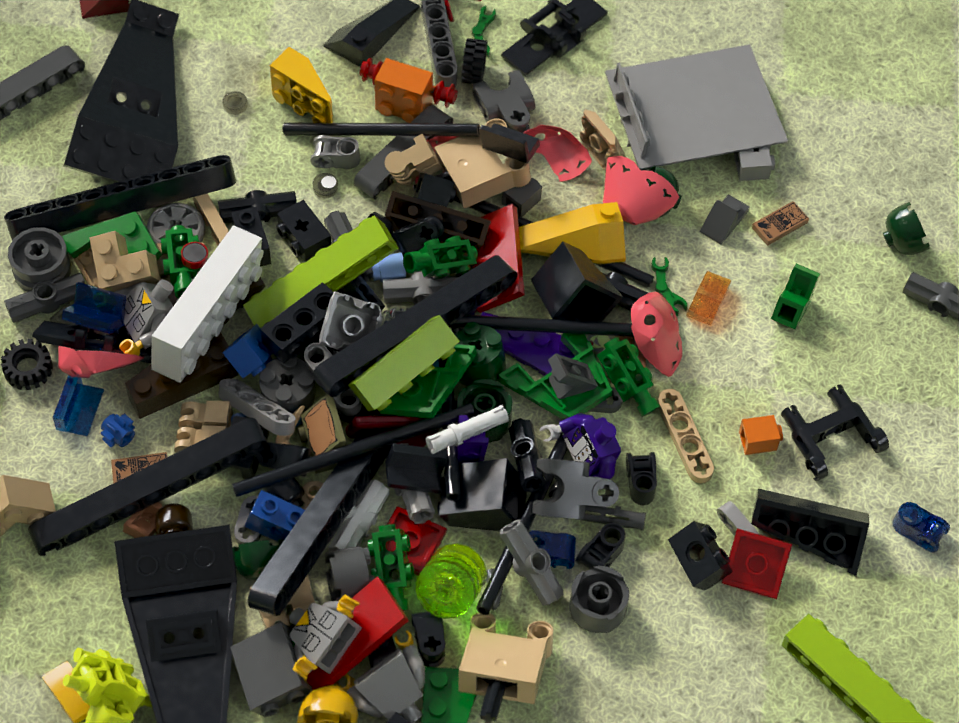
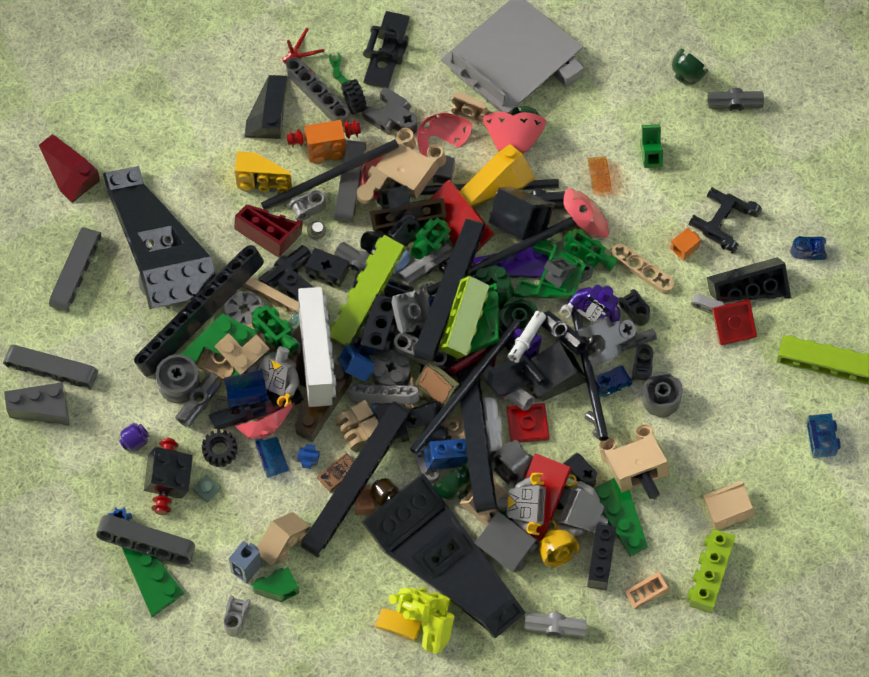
camera: 30 degrees left, 5 degrees up
(194, 255) = (284, 321): tile -> none
(235, 103) = (217, 206): clear smoke tile -> none
(267, 155) = (267, 230): none -> dark red wedge
(388, 561) = (530, 437): green brick -> none
(451, 581) = (575, 431): clear neon green wheel -> none
(509, 142) = (423, 141): black panel -> none
(531, 562) = (612, 394): light grey piece -> none
(662, 288) = (566, 183): green piece -> none
(687, 547) = (689, 334): black brick -> none
(724, 218) = (574, 118): dark grey slope -> none
(780, 223) = (609, 102): medium nougat tile -> none

